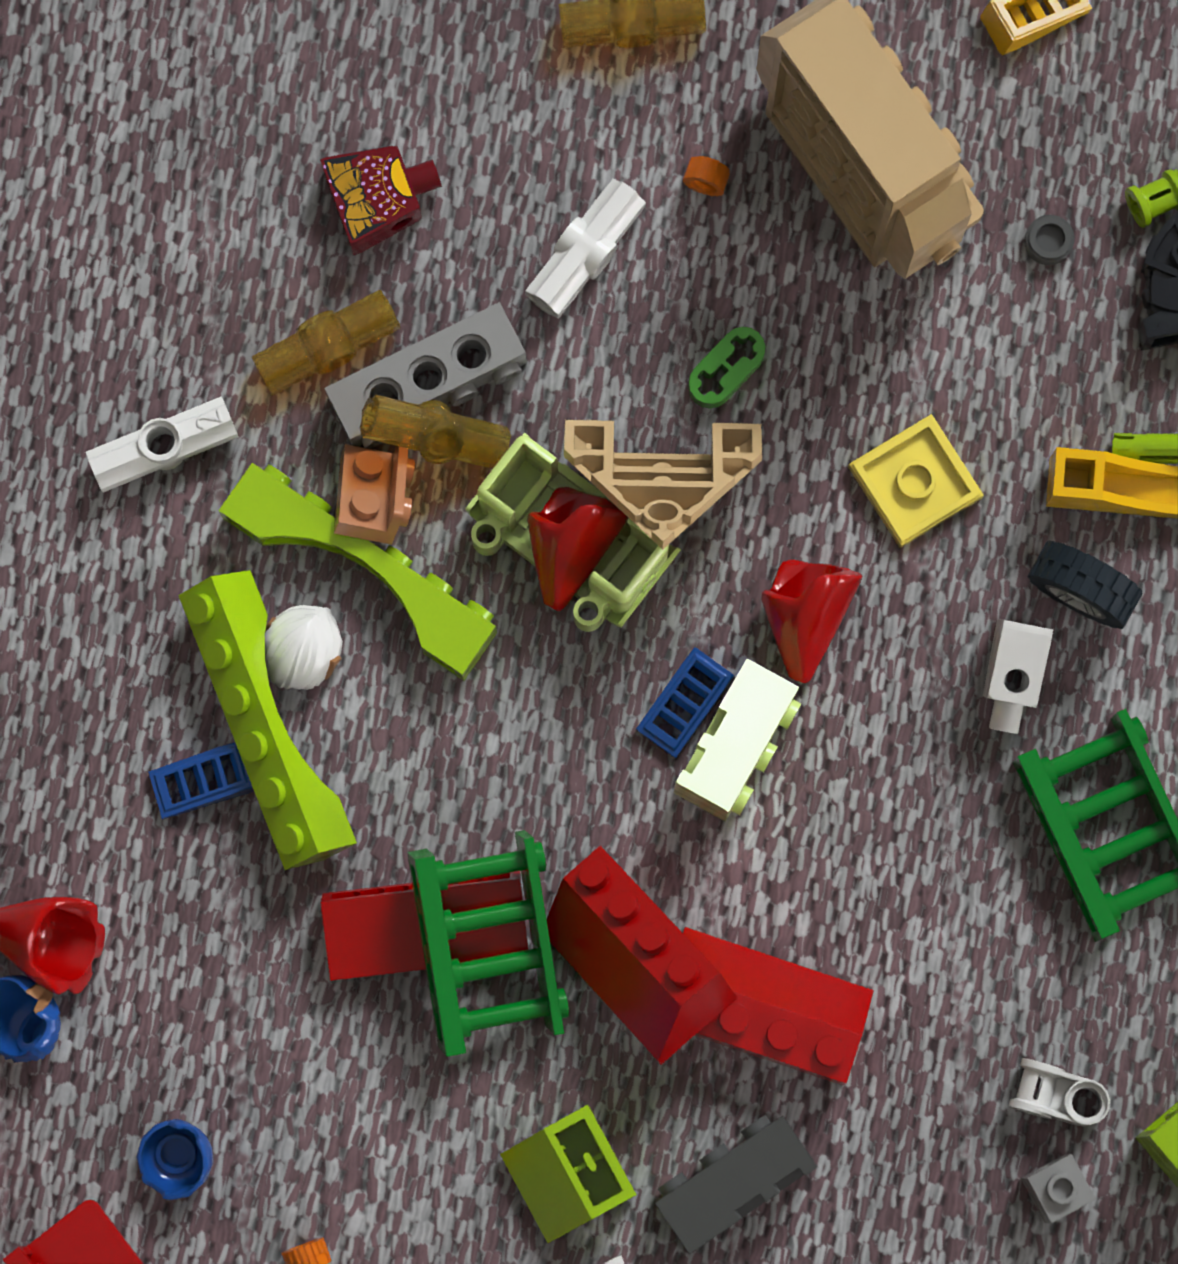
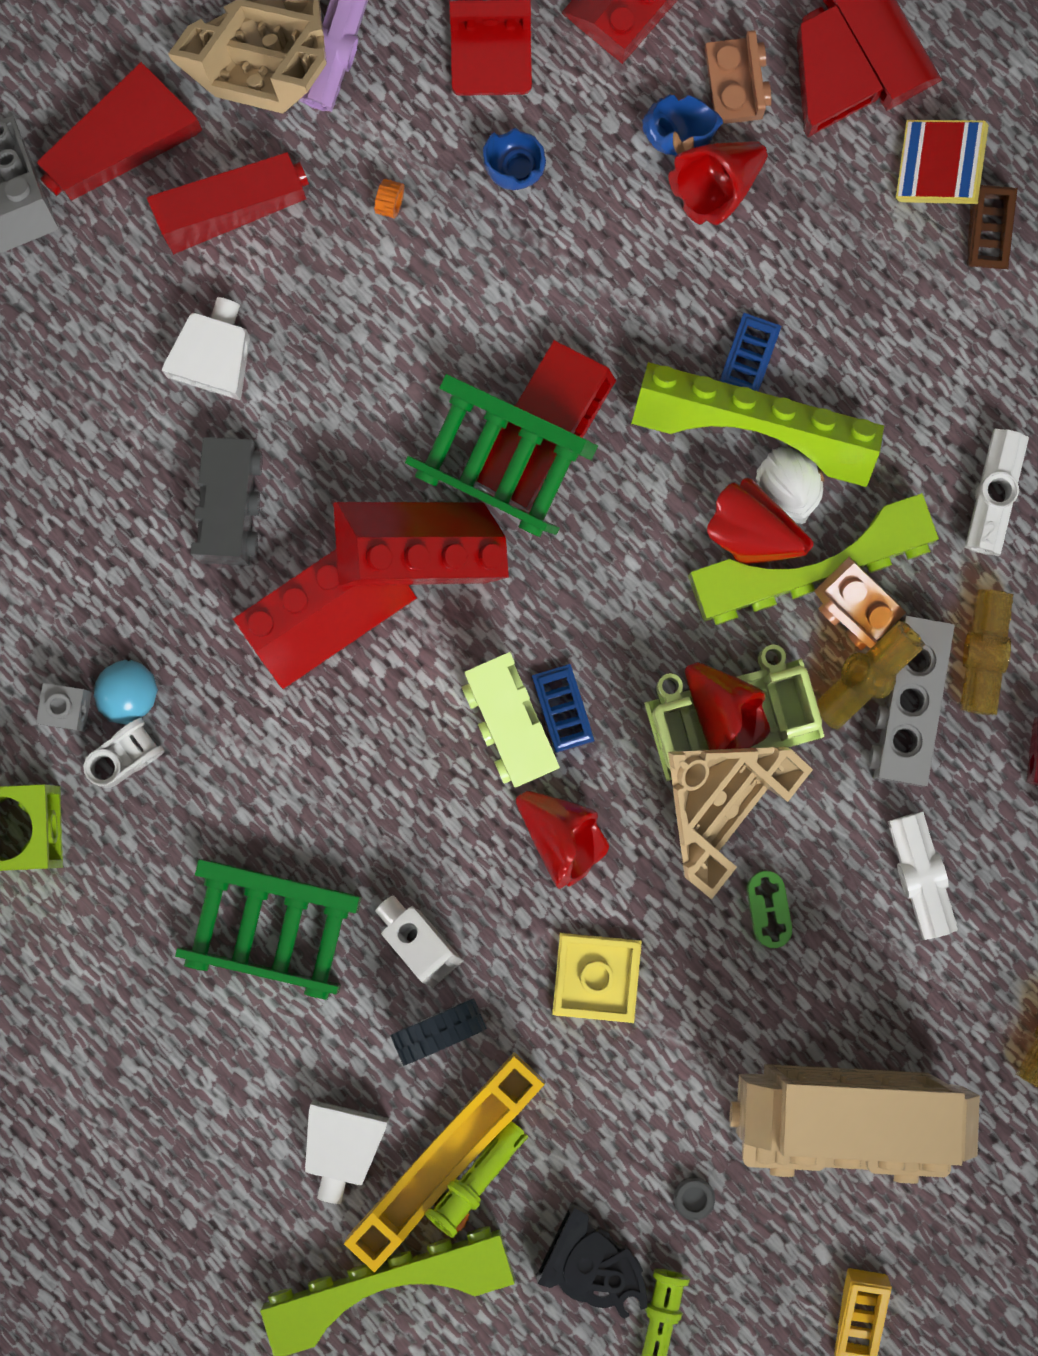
camera: 125 degrees right, 5 degrees up
(372, 642) = (755, 526): none -> red hat
(568, 1174) = (313, 402): lime slope -> none
(706, 176) = (912, 996): orange axle -> none
(995, 1143) = (125, 691): none -> medium azure hair

